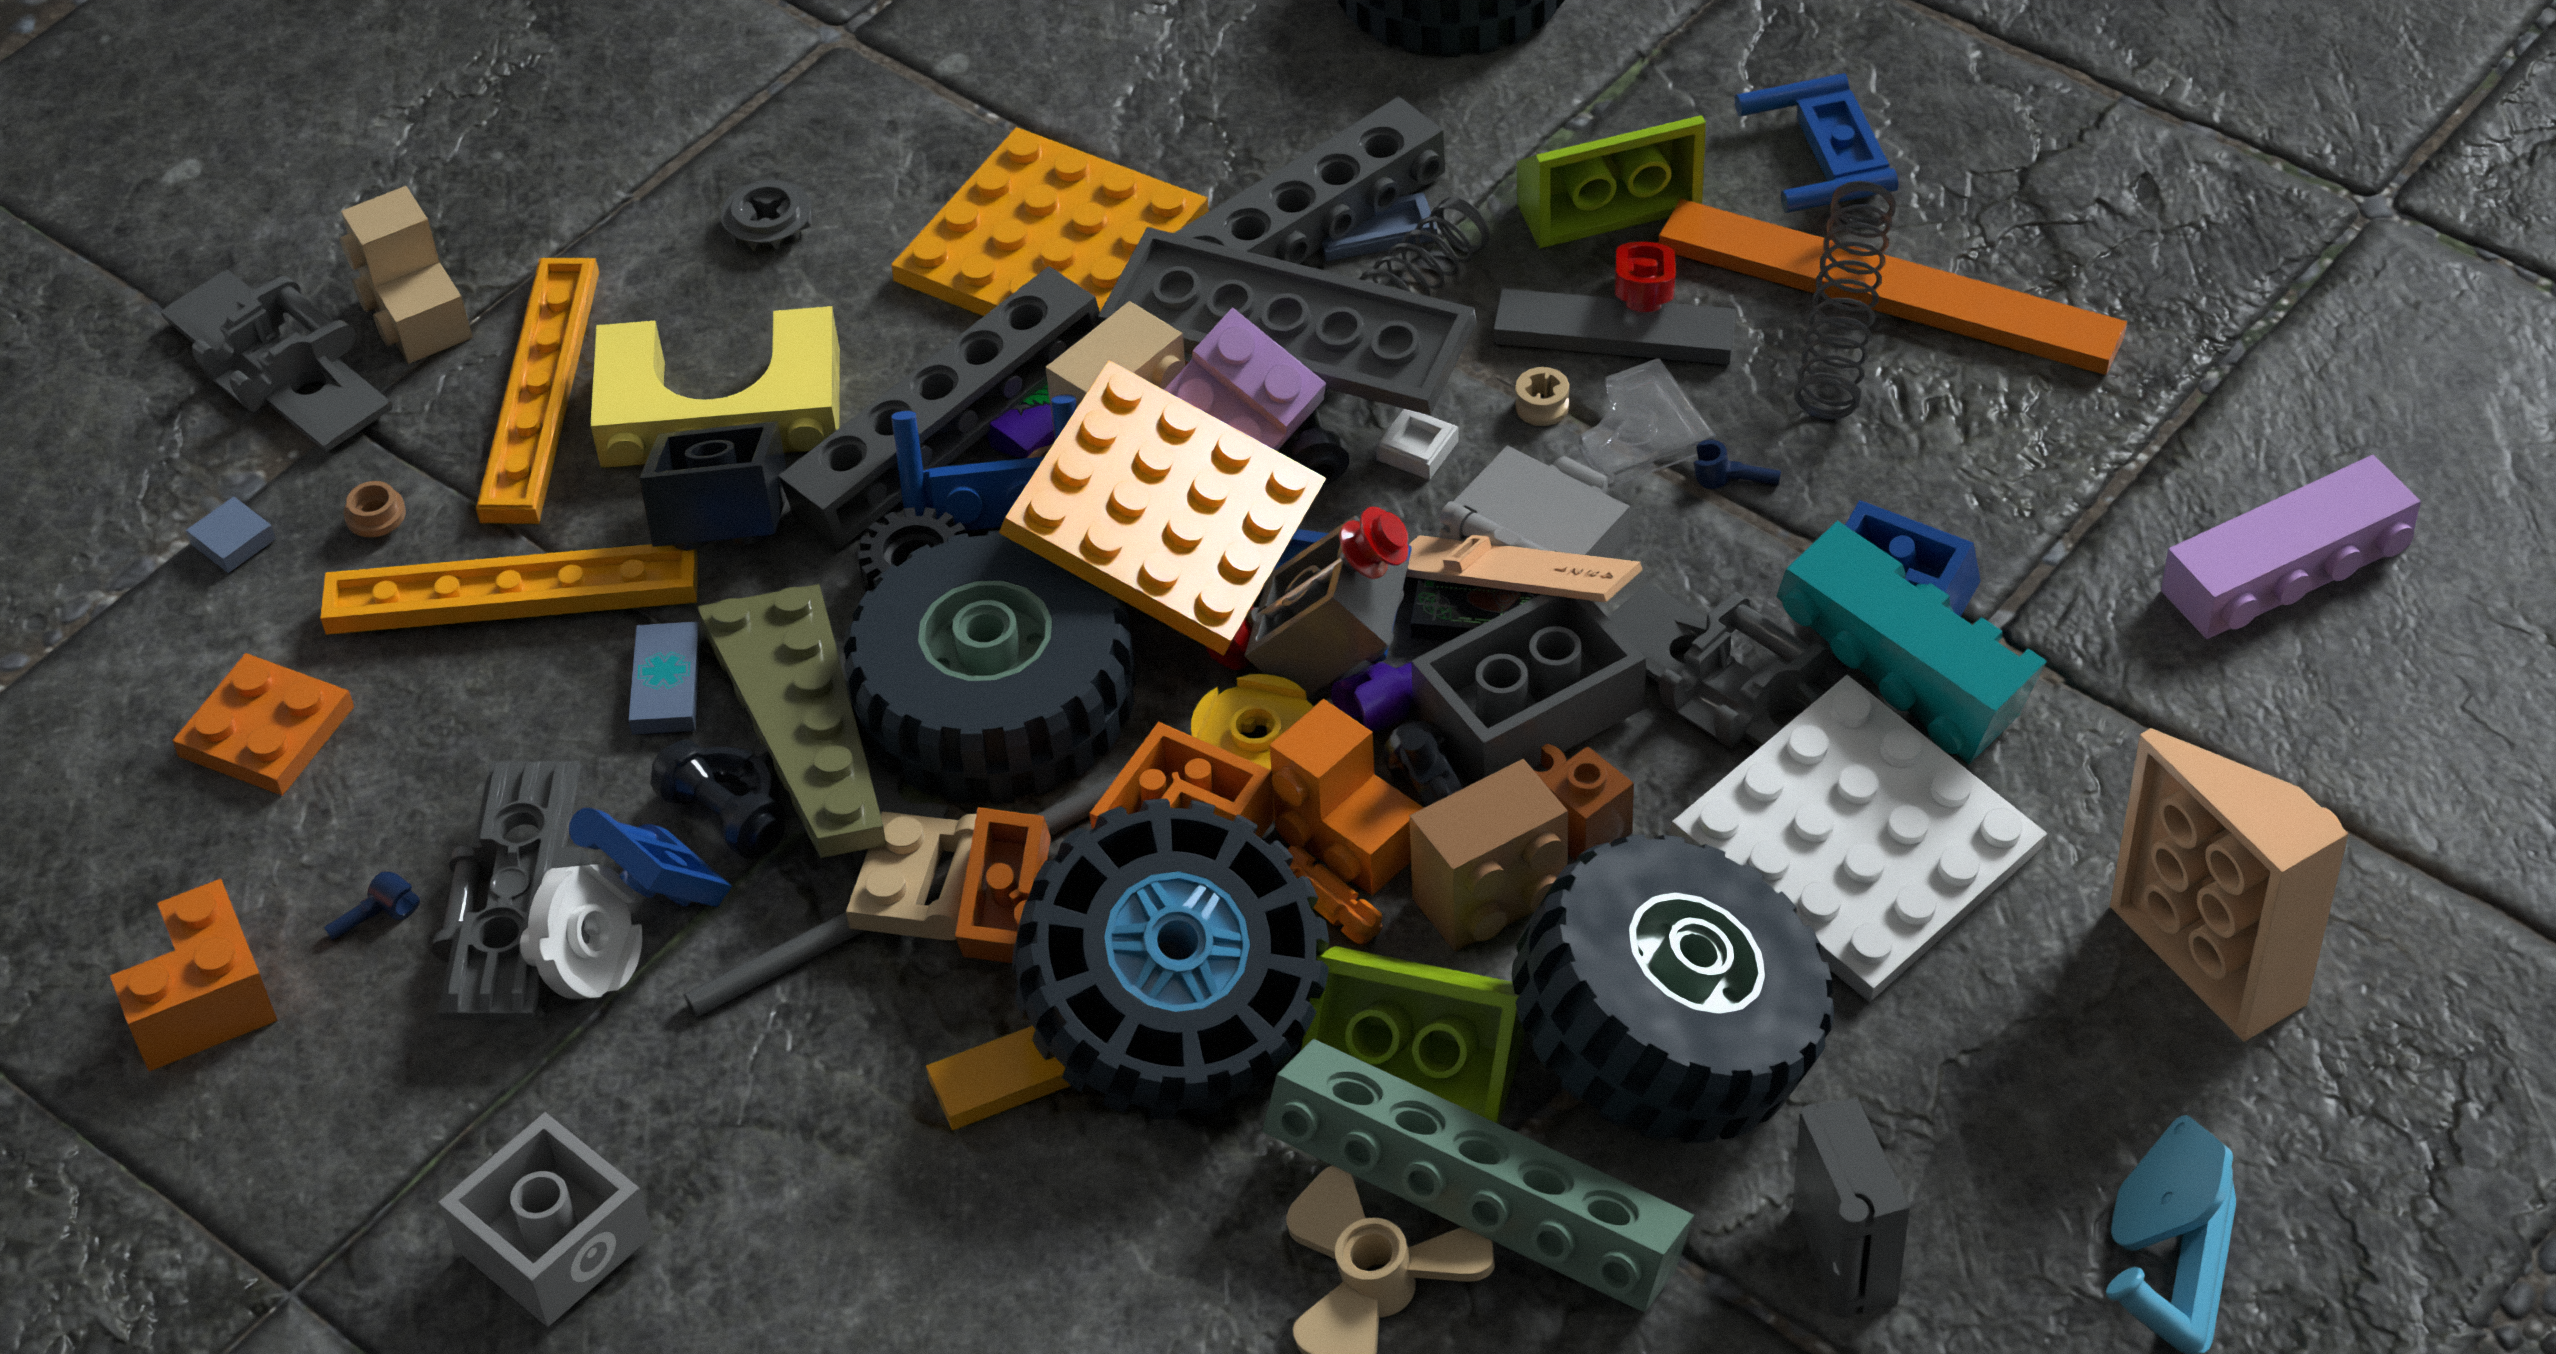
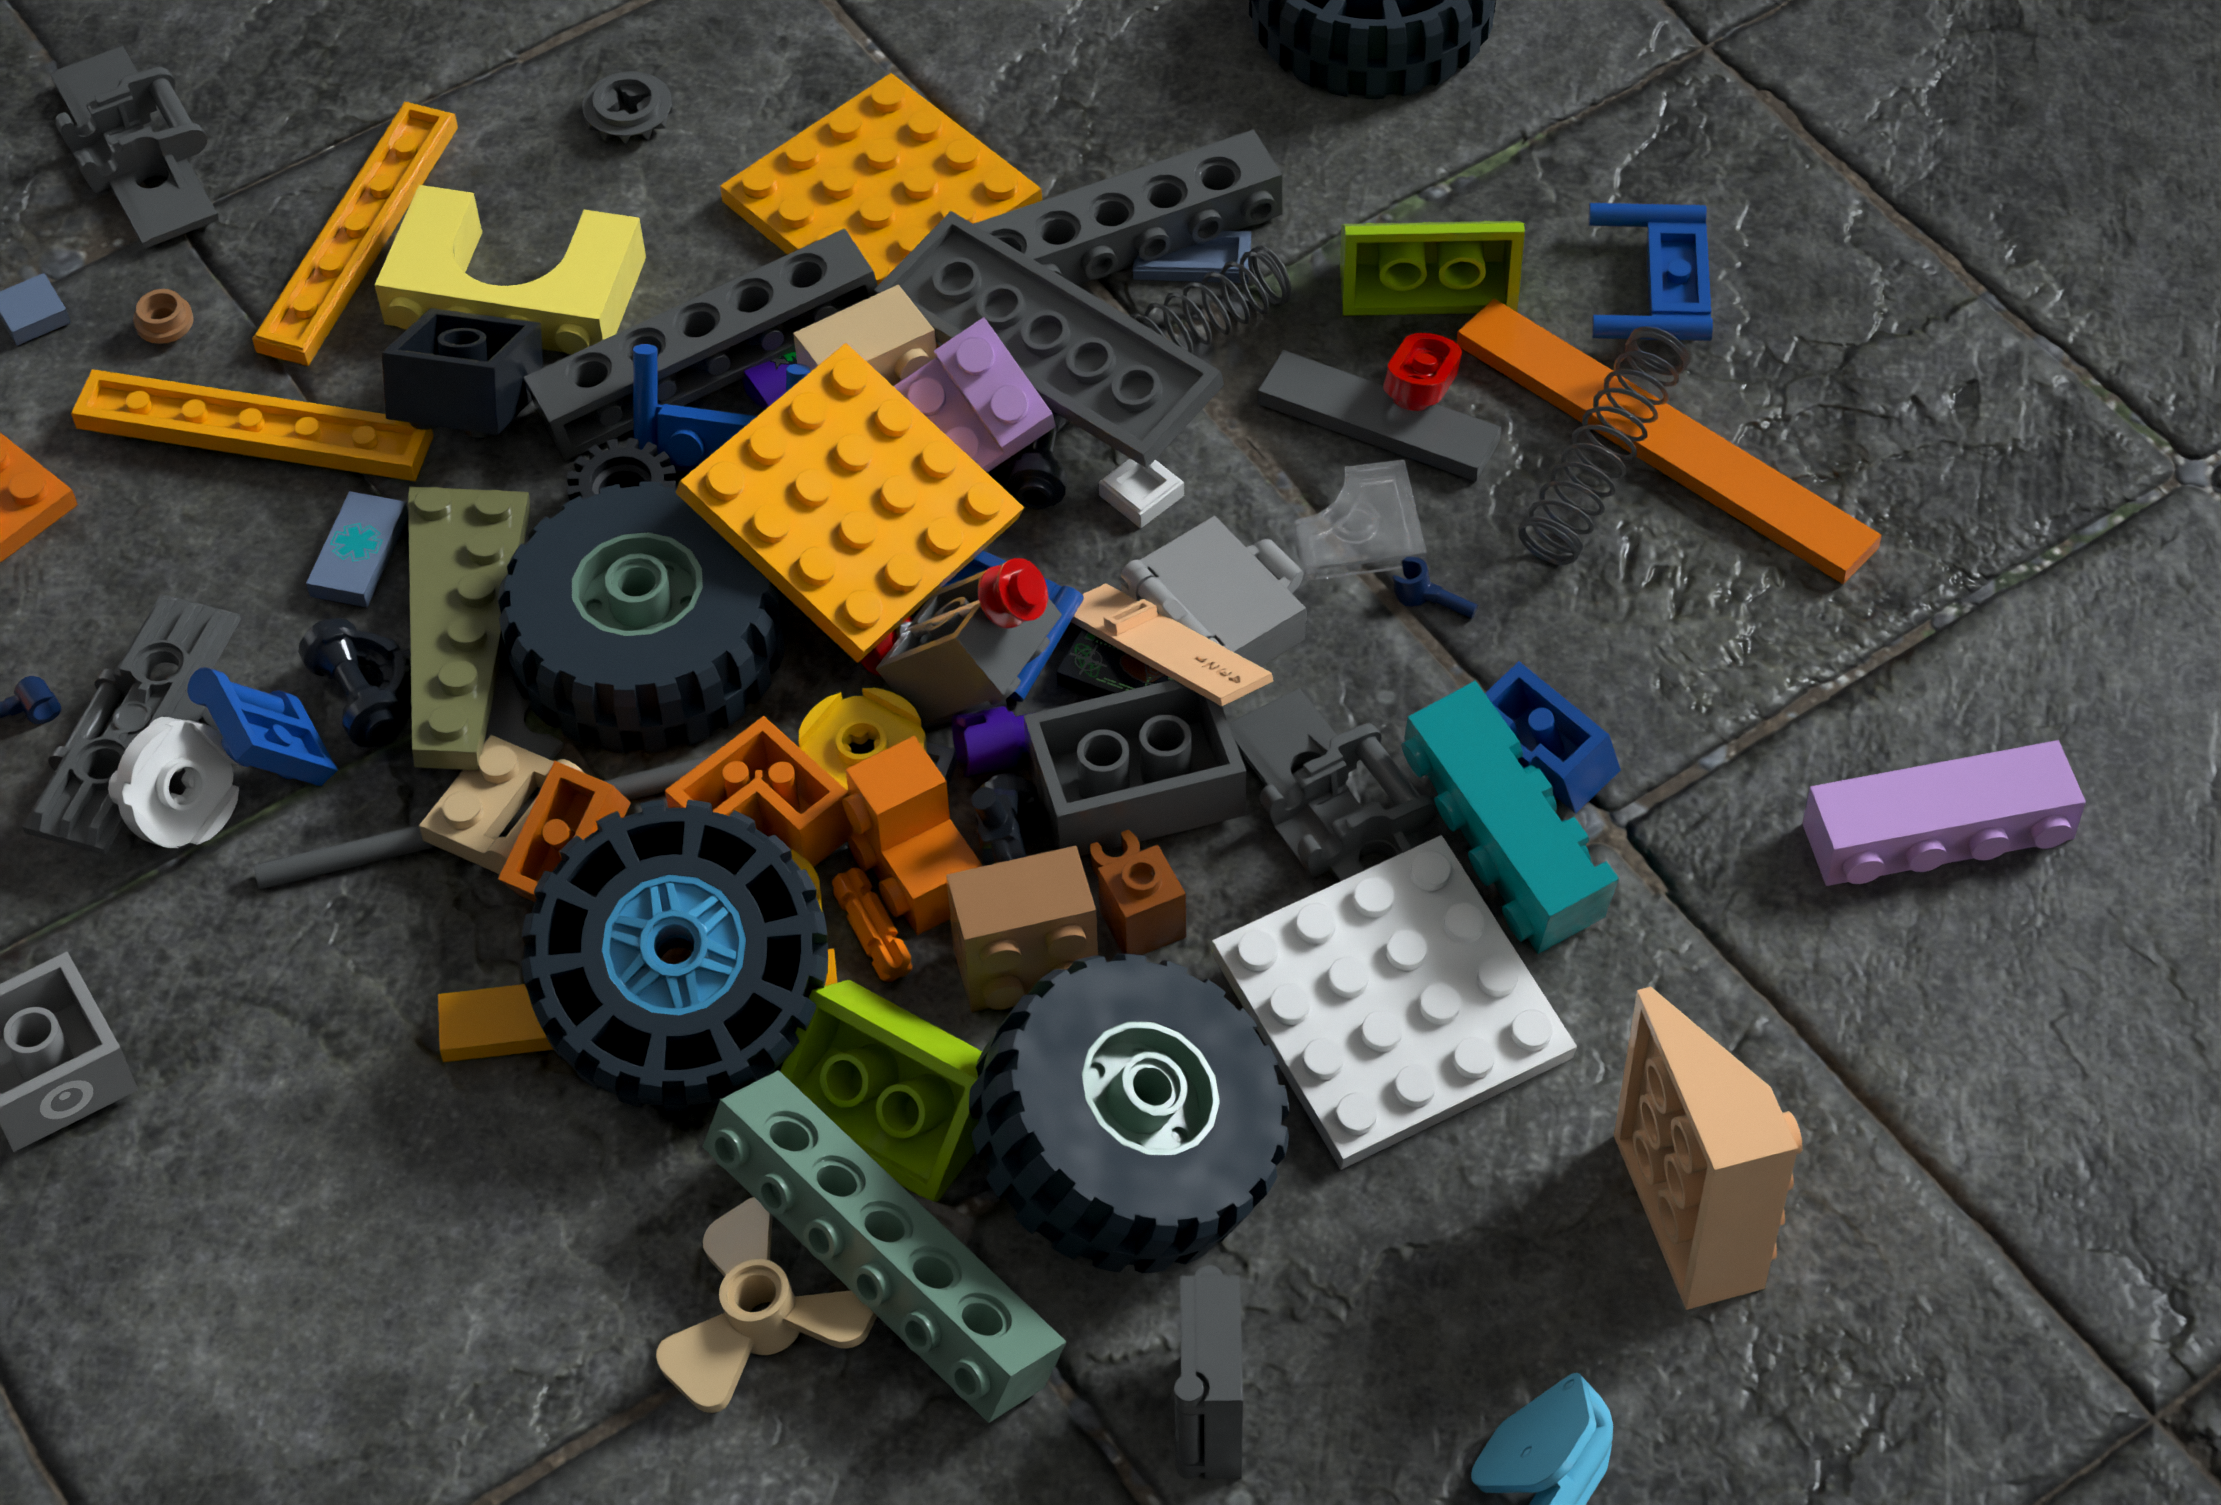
camera: 15 degrees right, 5 degrees up
(403, 276) = (266, 92): tan brick -> none
(1546, 382) = (1278, 455): tan bush -> none

